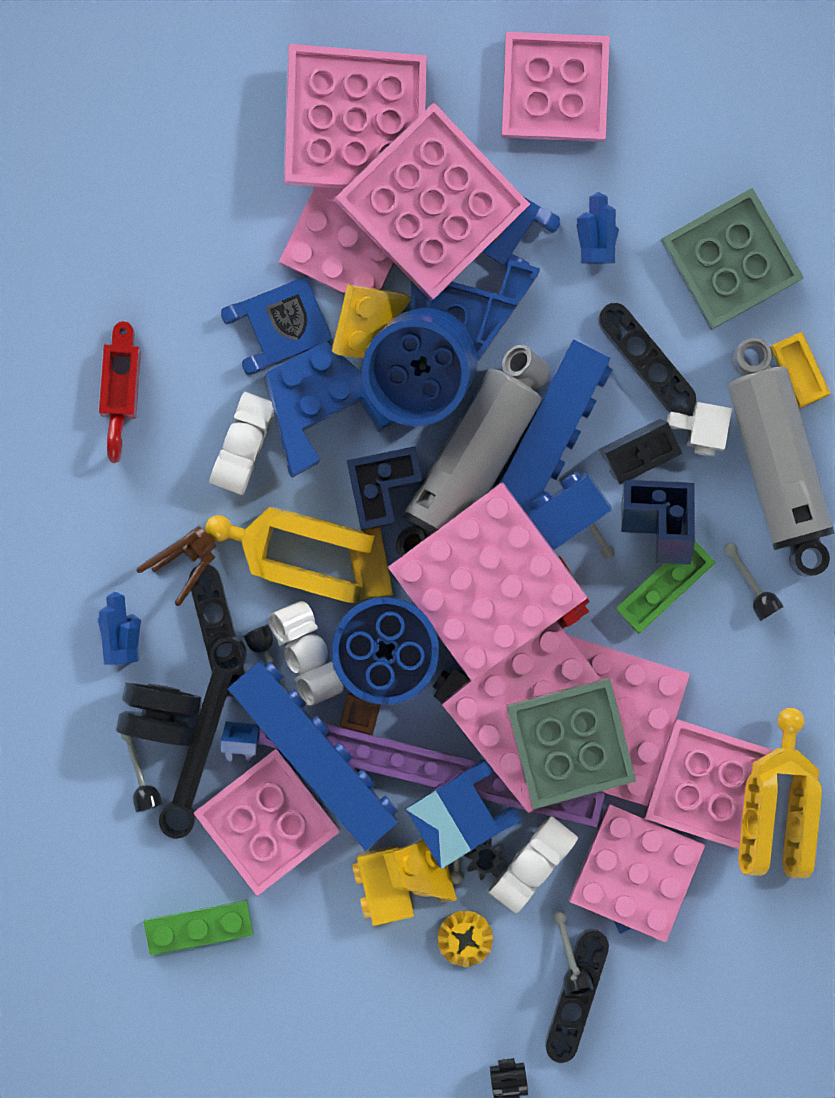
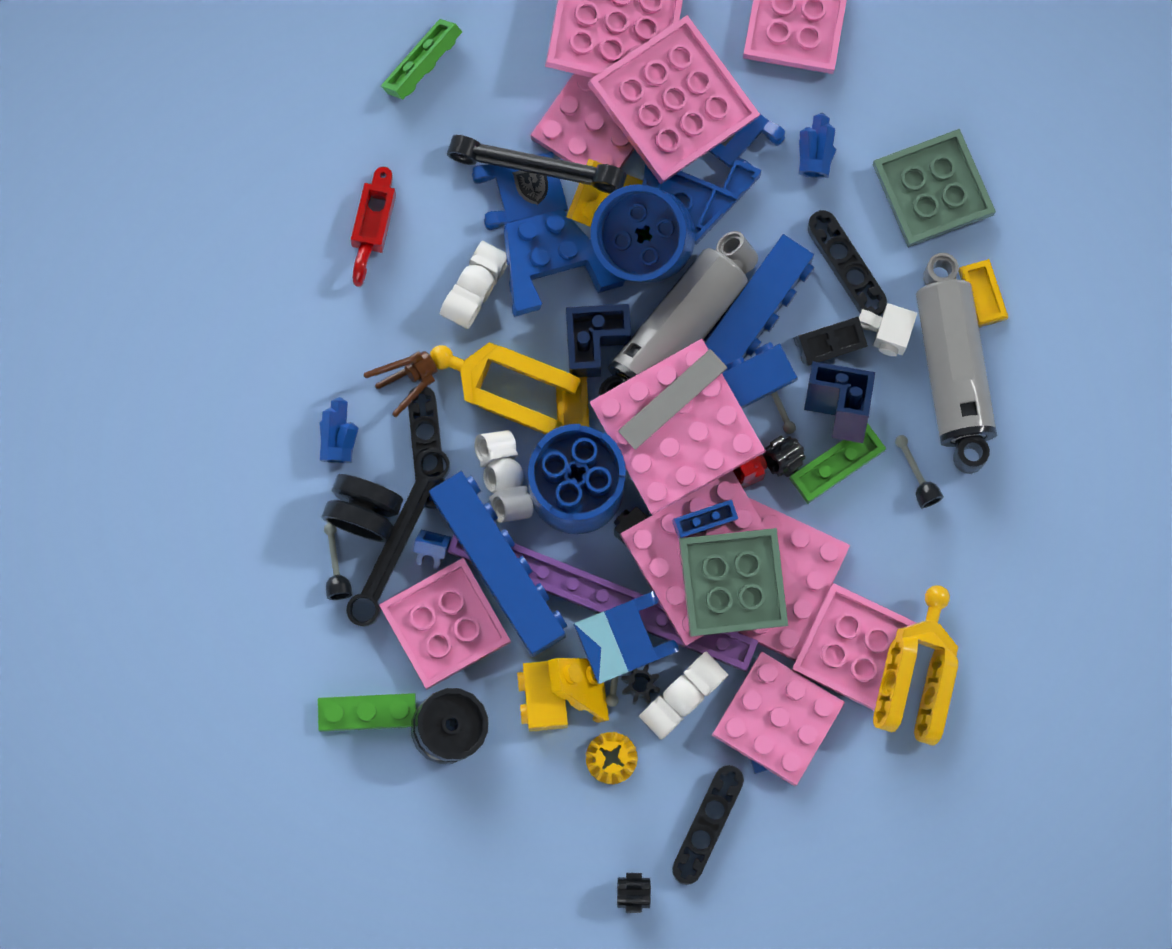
camera: 10 degrees right, 10 degrees down
(145, 191) = (421, 59): none -> bright green plate
(260, 641) = (463, 460): black hinge -> none
(303, 951) = (465, 716): none -> black wheel
(359, 715) = (544, 538): reddish brown tile -> none
(362, 307) = (470, 151): none -> black piece
(479, 555) = (672, 399): none -> light grey sticker
(531, 679) = (705, 519): none -> blue piece
(576, 979) = (709, 805): hinge -> none
(606, 587) = (784, 456): none -> black gear

